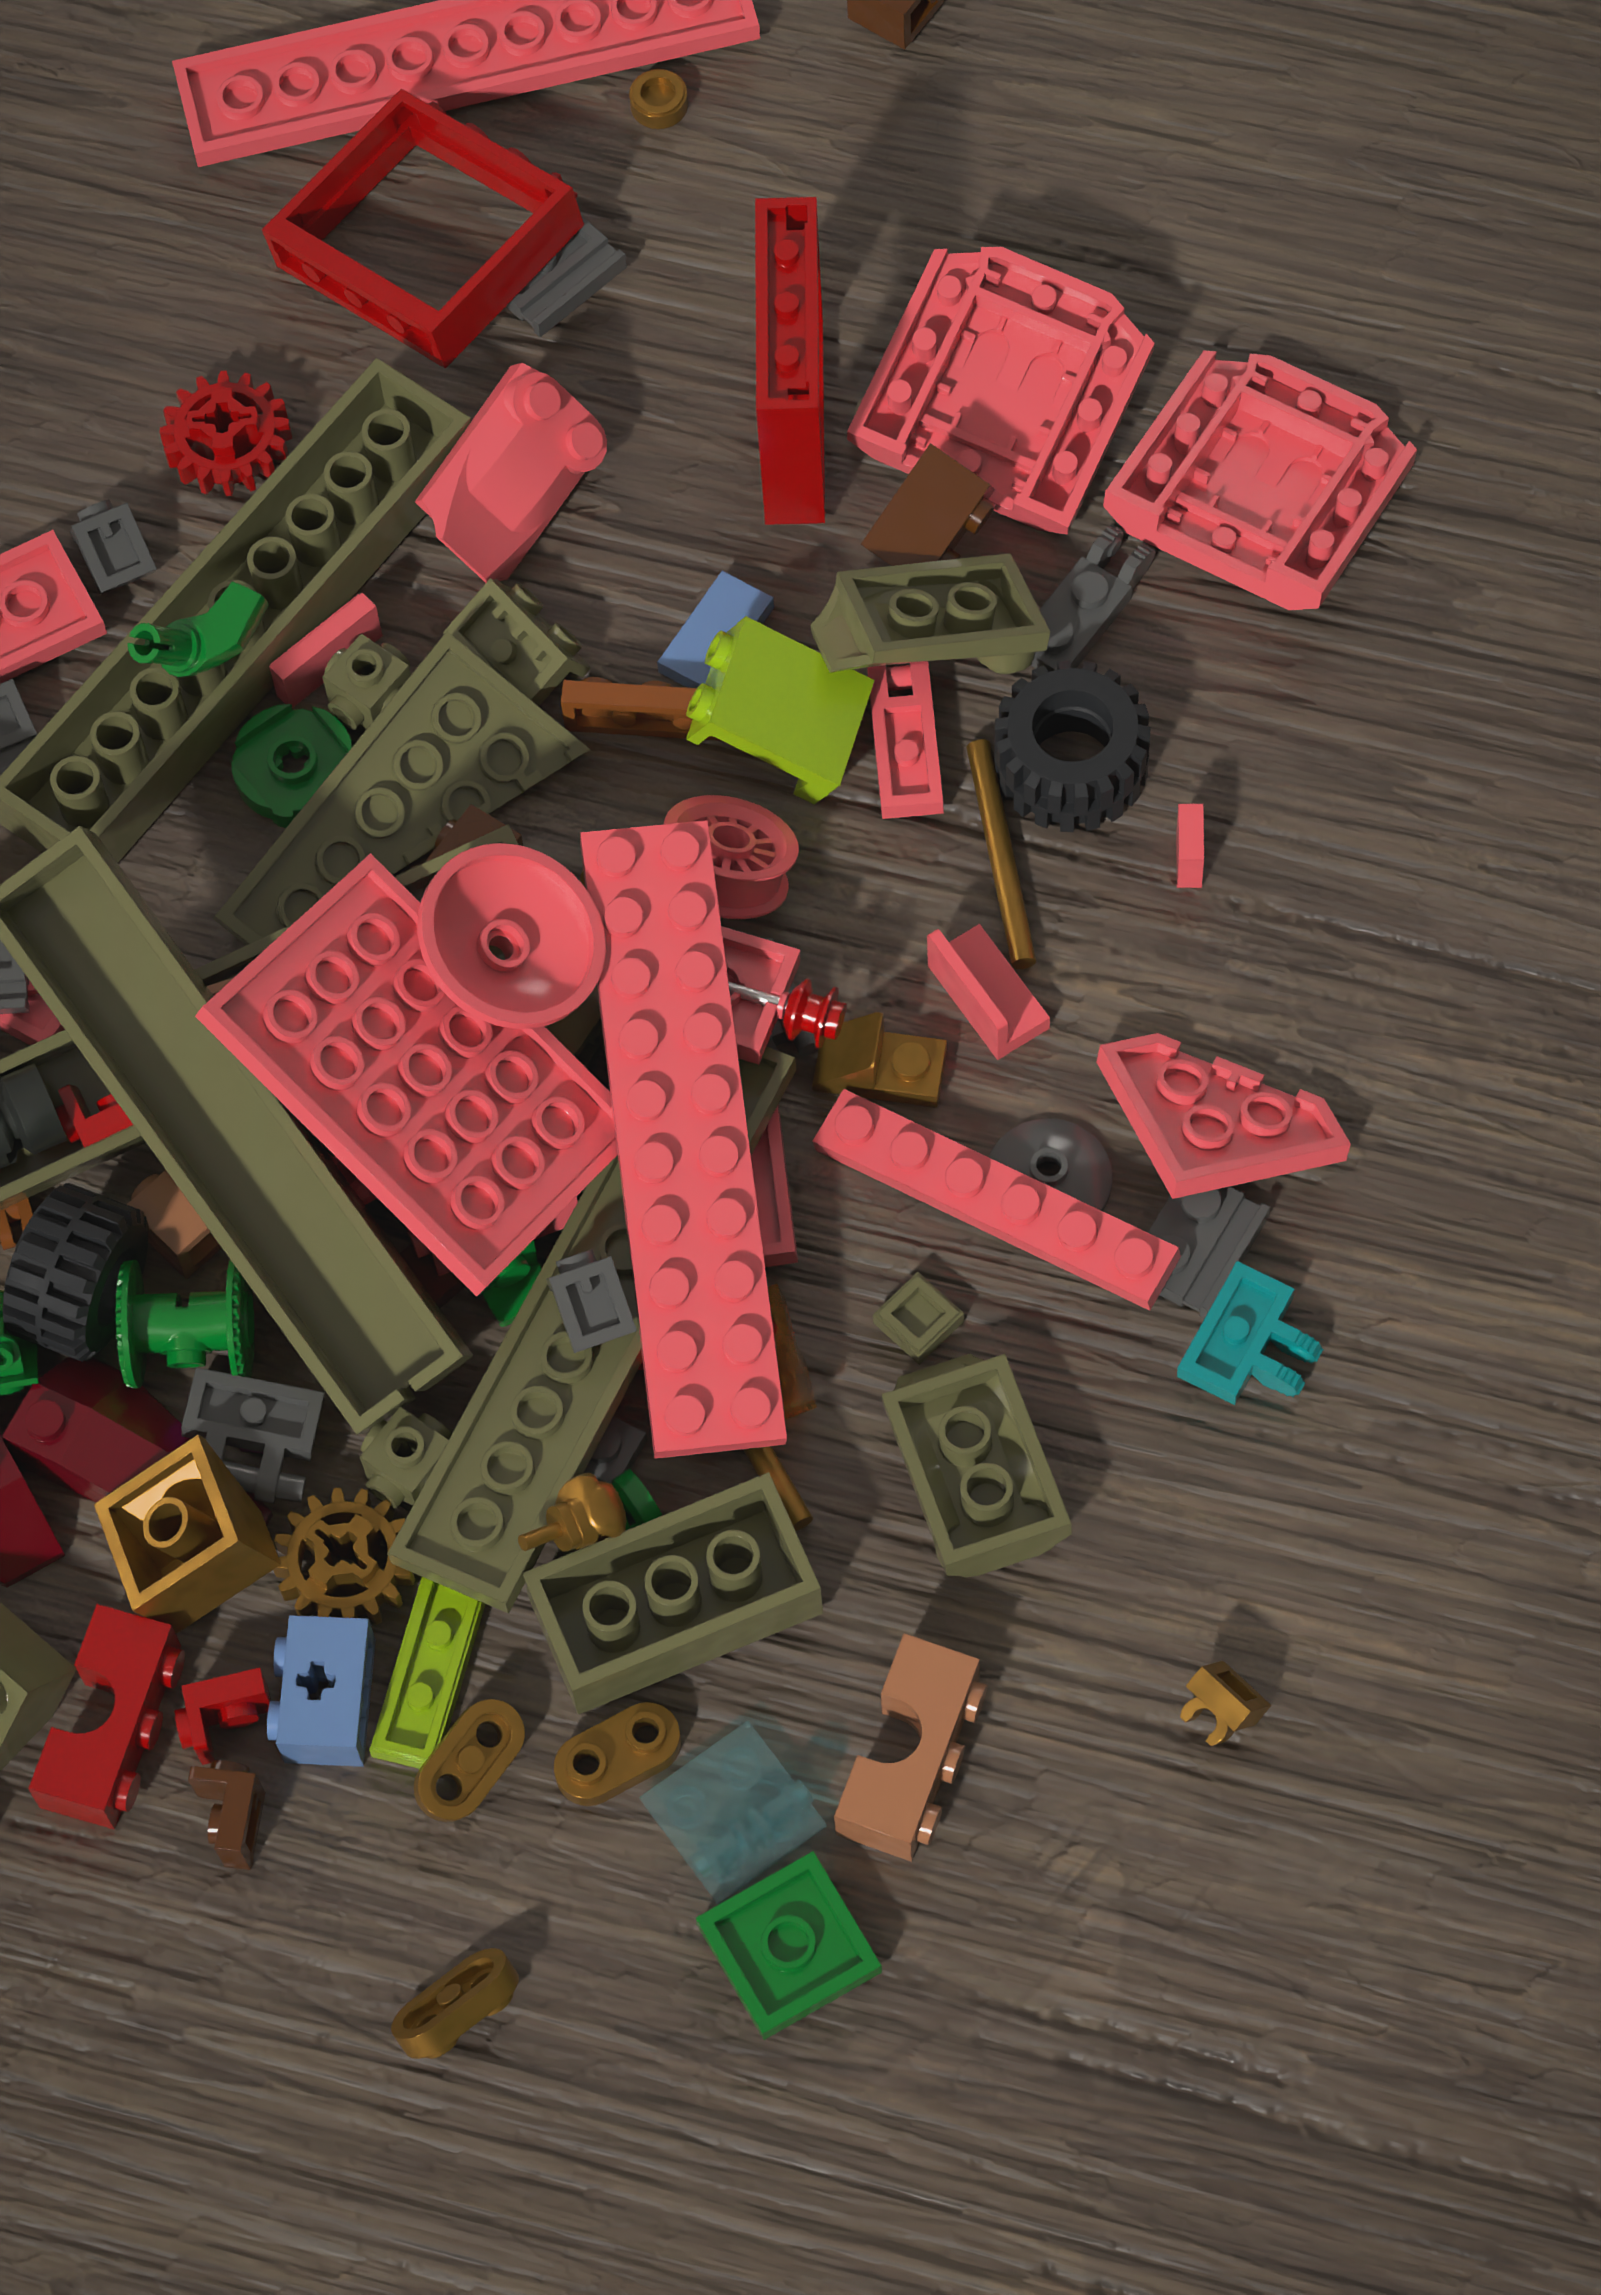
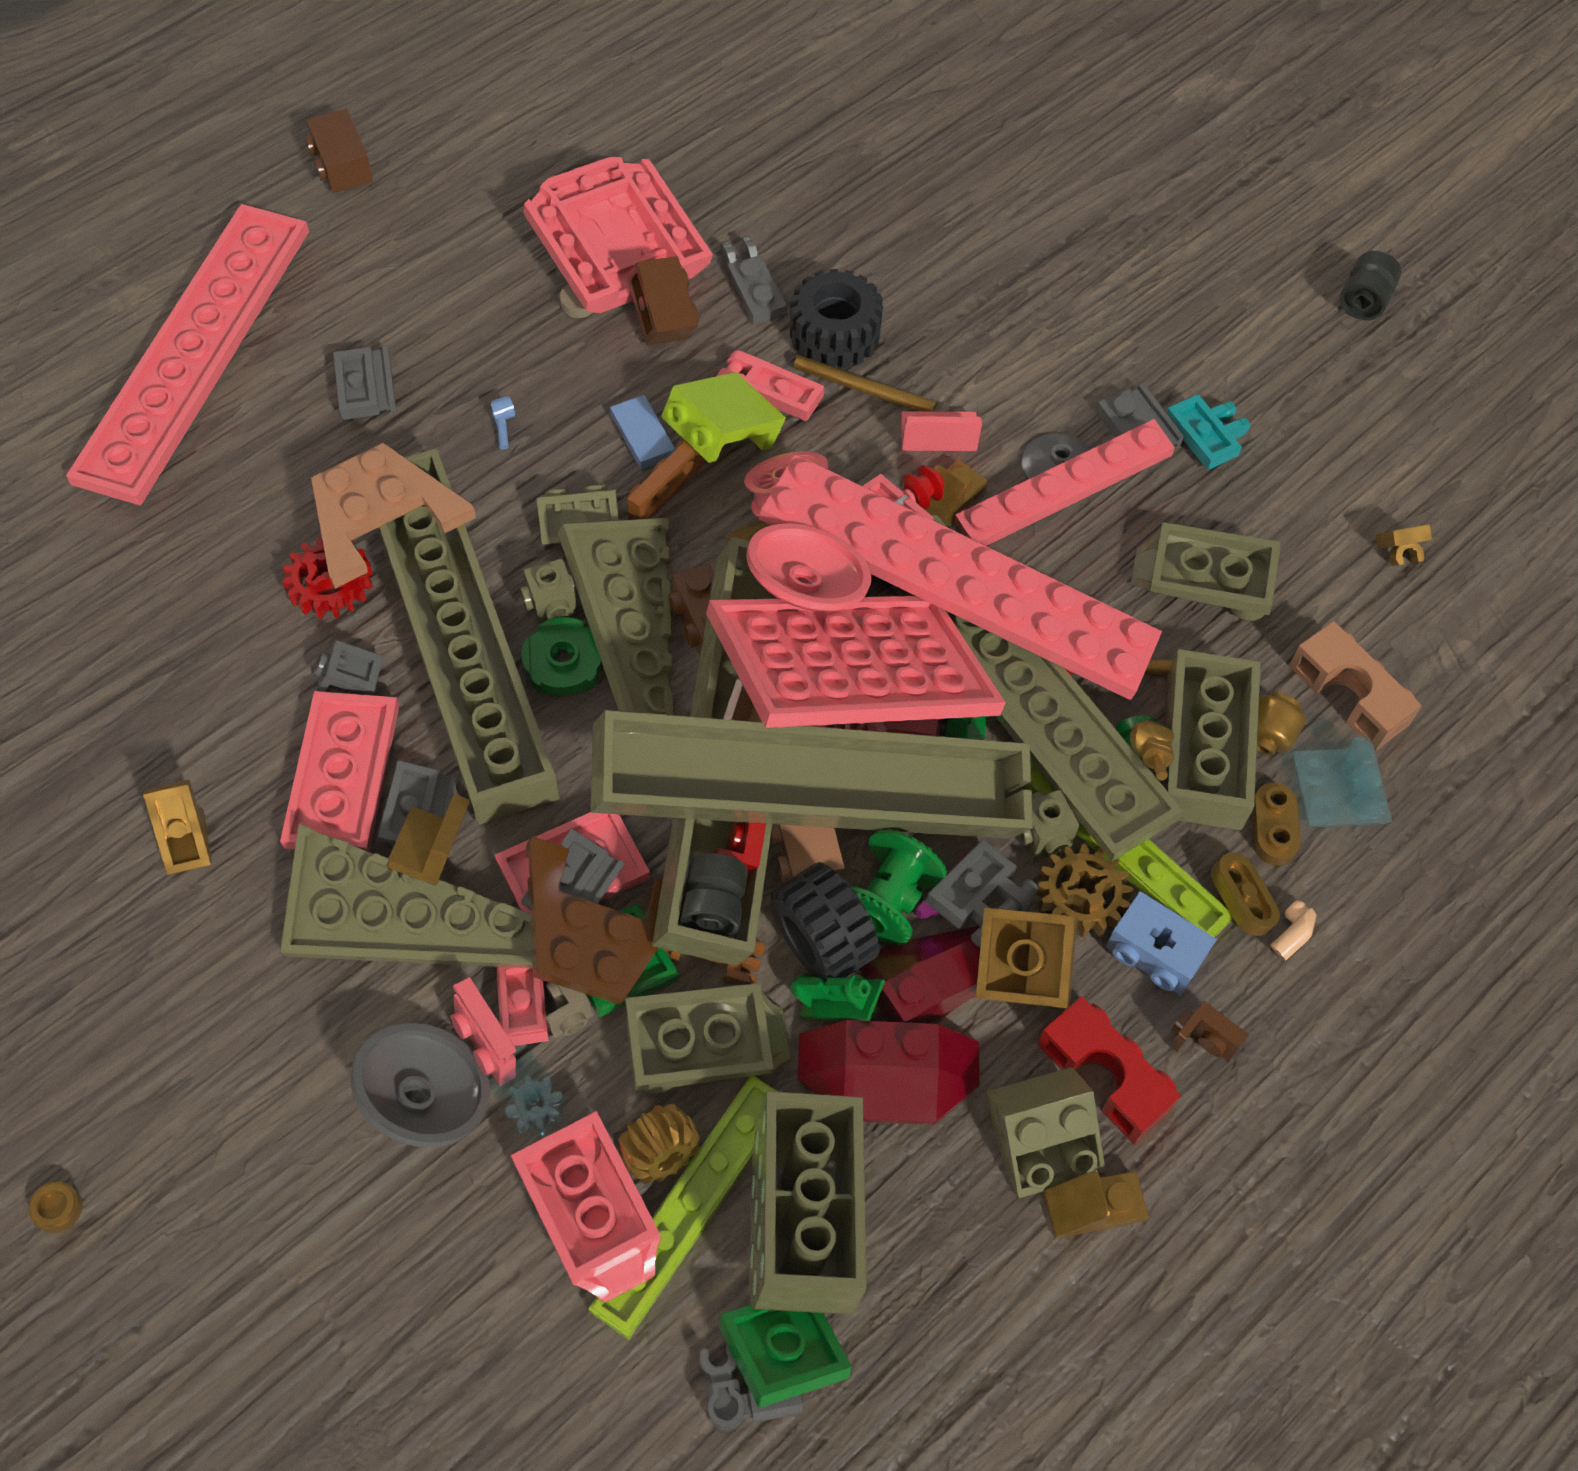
camera: 65 degrees left, 5 degrees down
(202, 640) = (475, 634): green arm -> none
(224, 1700) = (1136, 1006): red bracket -> none
(303, 665) = (507, 601): coral tile -> none
(331, 389) = (371, 493): none -> nougat wing
(360, 165) = (268, 371): red window -> none
(455, 2003) = (1390, 982): pearl gold plate -> none
(460, 1857) = (1298, 933): none -> light nougat arm
(511, 471) = (473, 452): coral slope -> none
(590, 1300) = (1028, 669): dark grey bracket -> none
(623, 450) = (502, 410): none -> medium blue hand
(658, 99) = (302, 289): pearl gold tile -> none
(767, 1670) = (1278, 723): none -> pearl gold head
(788, 1945) = (1437, 800): green plate -> none
(789, 360) = (493, 229): red window -> none
(918, 1318) = (1104, 557): olive tile -> none
(931, 615) = (726, 324): olive slope -> none
(1190, 845) = (924, 307): coral tile -> none
(1215, 1120) = (1083, 378): coral plate -> none
(1261, 477) = (746, 176): coral wedge -> none

